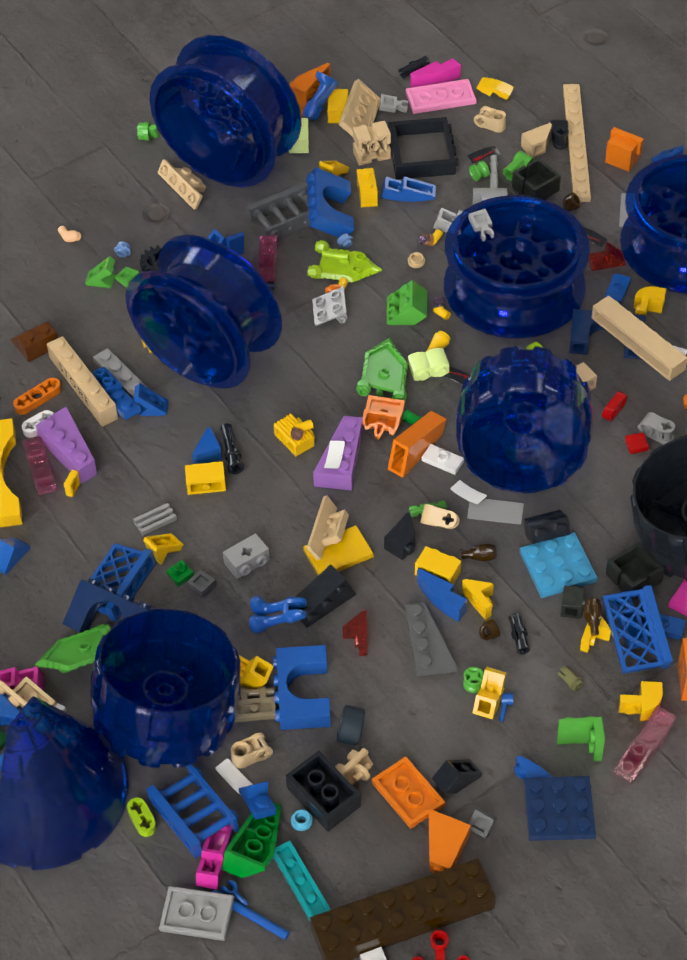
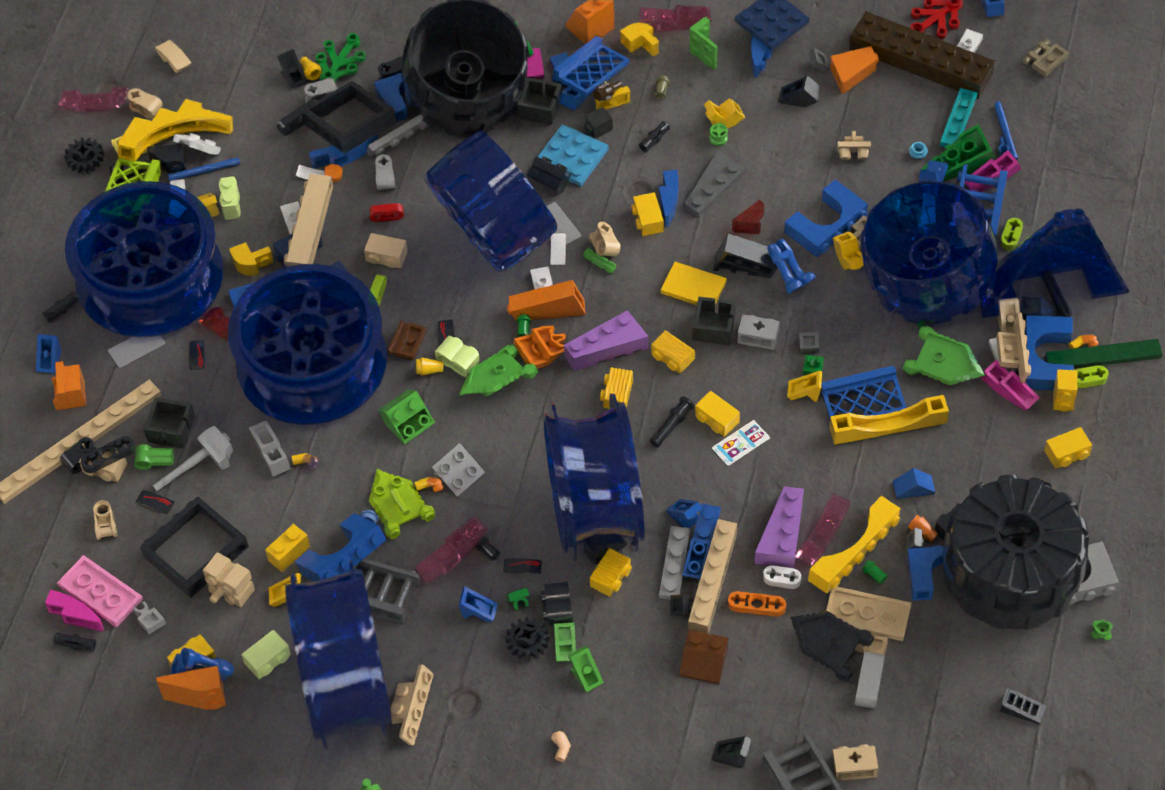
camera: 130 degrees left, 5 degrees up
(53, 600) = (855, 427): none -> yellow arch
(72, 483) = (813, 497): yellow tile -> none
(83, 350) = (680, 605): none -> black tile
(91, 597) = (899, 378): dark blue arch -> none
(123, 249) = (539, 682): medium blue plate -> none
(153, 517) = (785, 417): light grey tile -> none
(169, 482) = (740, 442): none -> sticker
(196, 913) = (1037, 153): light grey tile -> none
(208, 449) = (689, 435): blue slope -> none
(236, 242) = (450, 600): blue slope -> none
(284, 529) = (714, 326): none -> pearl dark grey piece
(289, 490) = (672, 352): none -> yellow brick
(299, 429) = (617, 375): arm -> none
(323, 790) = (889, 146): black brick -> none
(327, 527) = (682, 293): tan bracket -> none
(334, 454) = (621, 330): white sticker -> none
(350, 725) = (827, 166): black wheel -> none
(360, 107) = (184, 628): tan plate -> none
(401, 538) = (643, 253): black slope -> none
(407, 190) = (260, 517): blue slope -> none
(408, 792) = (838, 111): orange plate -> none
(416, 260) = (343, 451): tan plate -> none
(438, 308) = (384, 396): arm -> none
(474, 346) = (407, 340): none -> reddish brown plate
(478, 595) = (647, 177): yellow slope -> none
(479, 170) = (187, 480): bright green wheel -> none
(481, 222) = (311, 352): light grey plate -> none
(481, 552) = (609, 200): dark brown piece -> none
(490, 85) = (54, 549): yellow slope -> none
(491, 628) = (669, 151): dark brown tile -> none
(537, 138) = (97, 465): none -> black beam
(573, 202) = (163, 388): dark brown tile -> none
(636, 443) = (409, 181): red tile -> none

